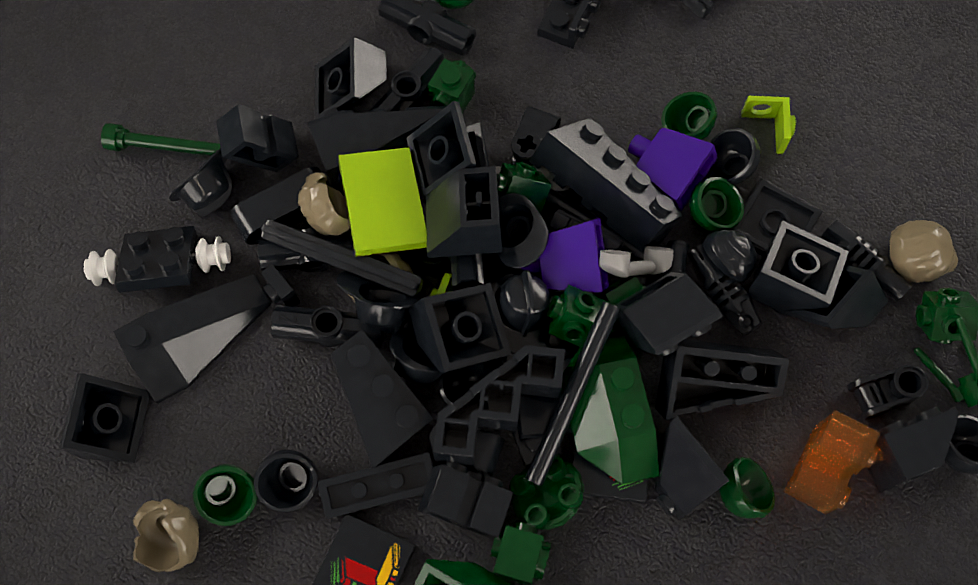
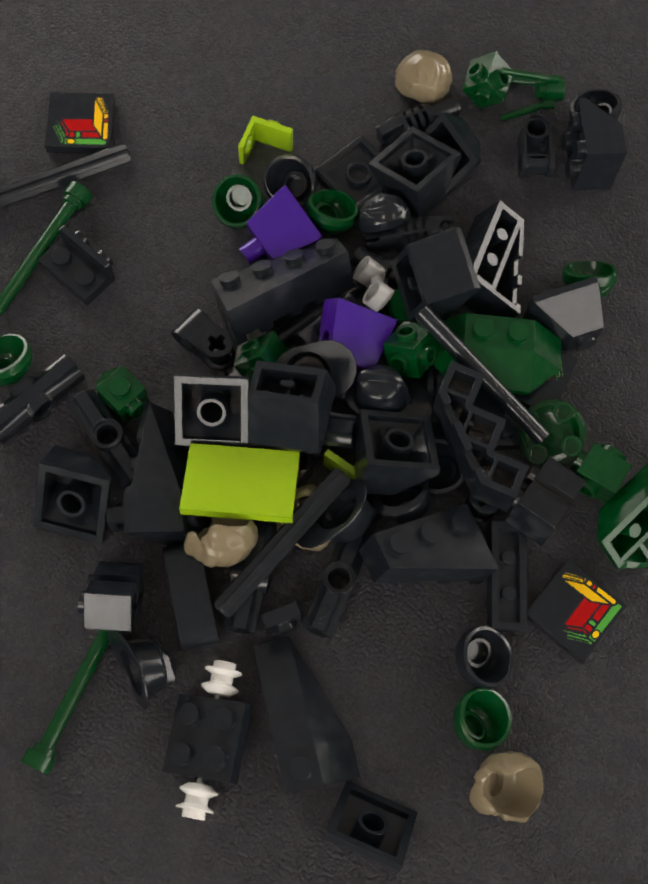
camera: 80 degrees left, 0 degrees up
(830, 457) = (582, 210): clear orange brick -> none

